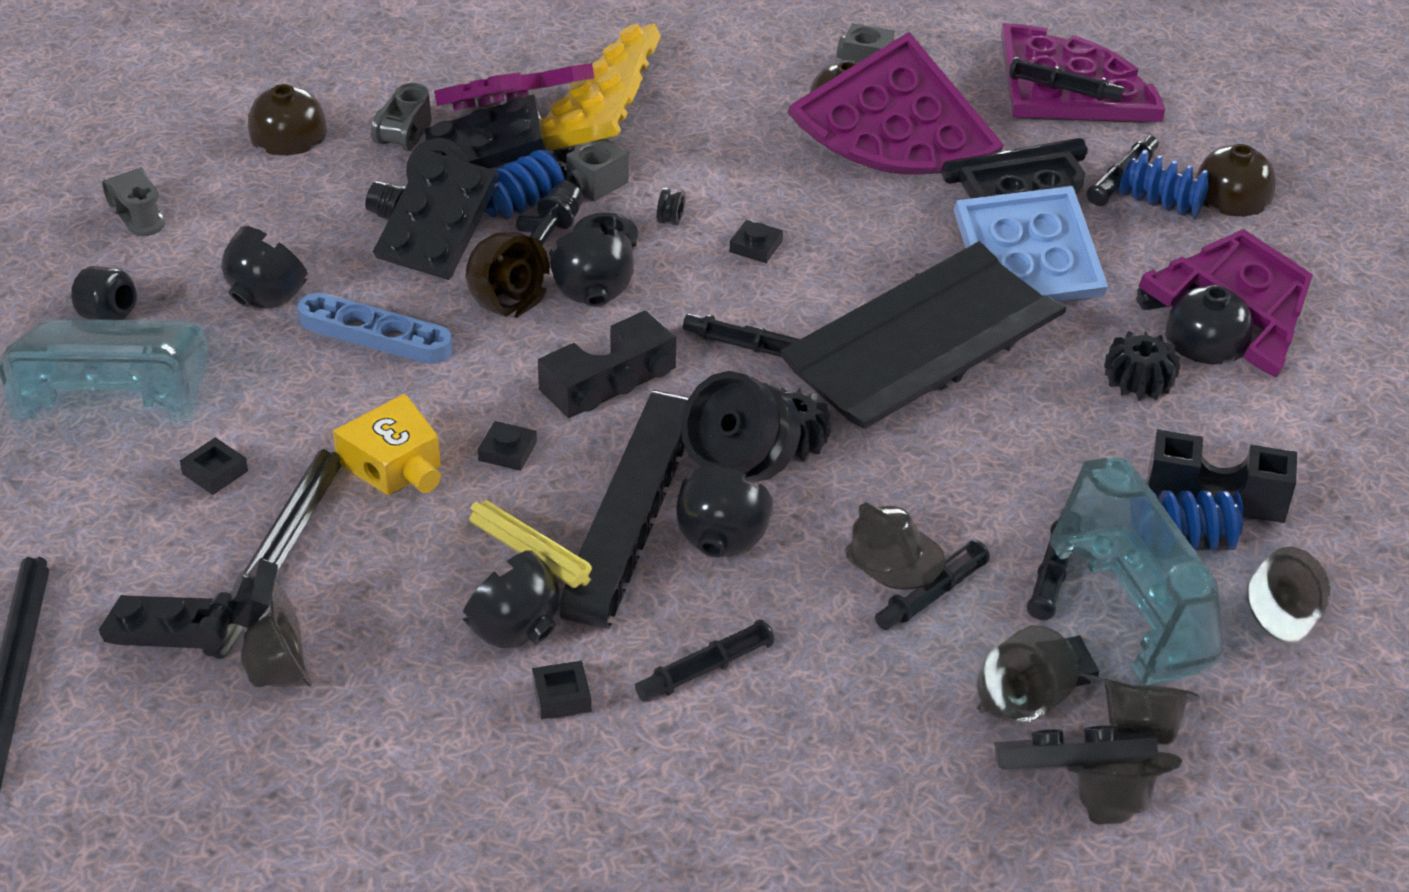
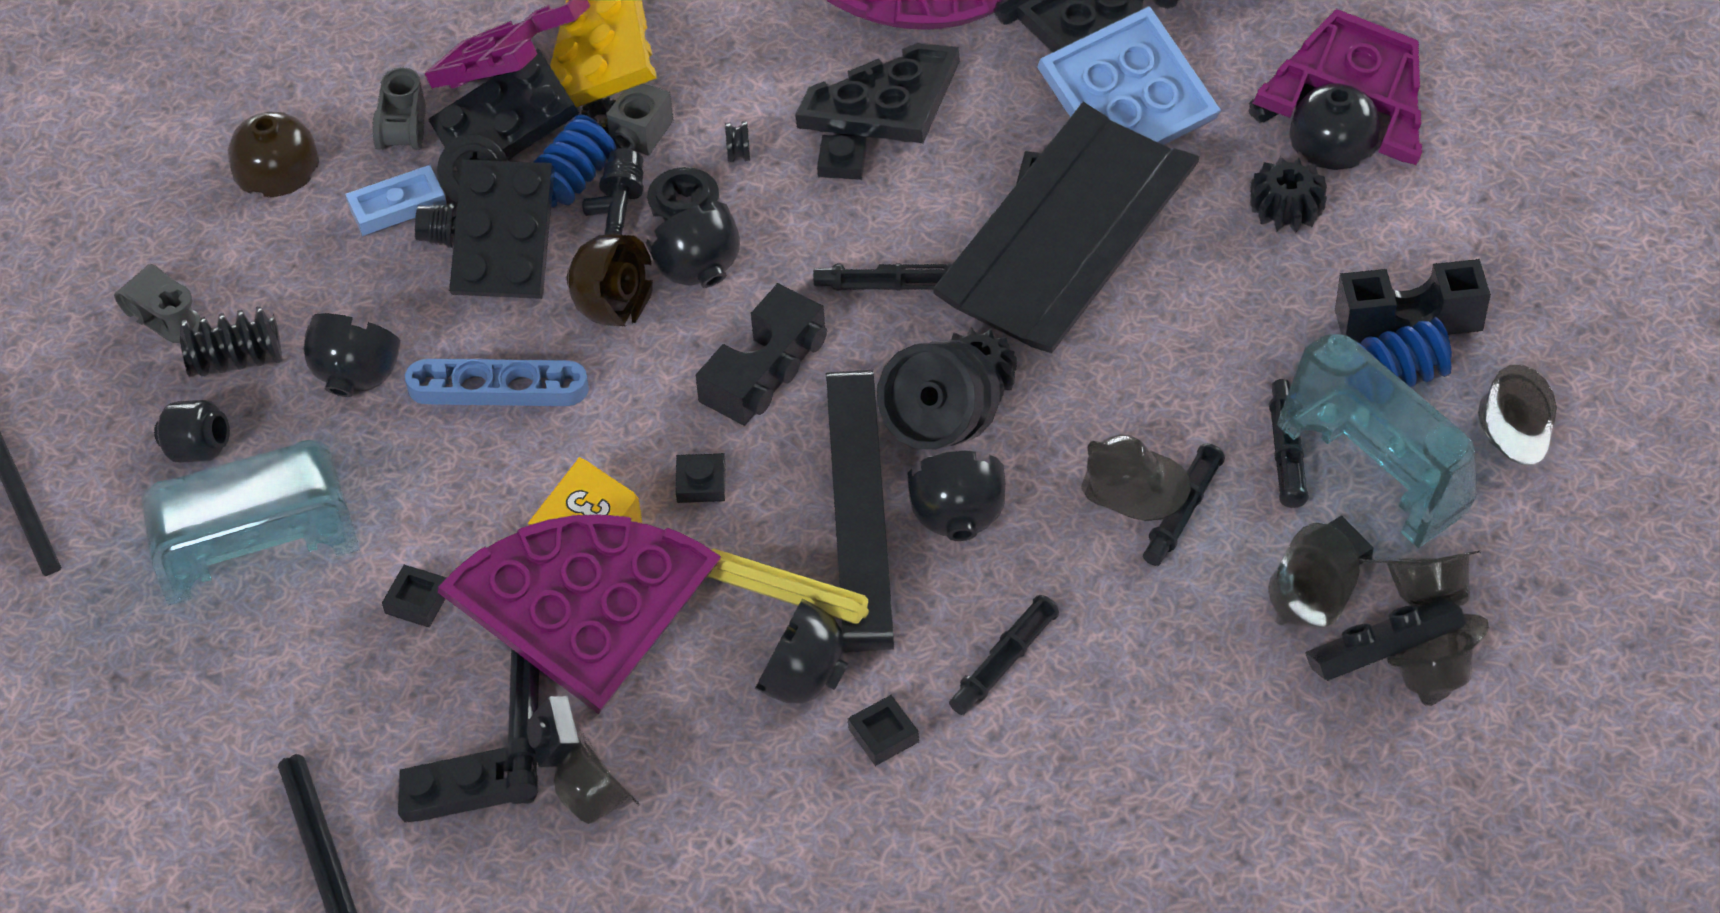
camera: 15 degrees left, 10 degrees up
(171, 240) = (230, 341): none -> black piece
(347, 499) = (581, 595): none -> magenta plate
(355, 177) = (394, 199): none -> light blue plate
(813, 207) = (884, 99): none -> black plate

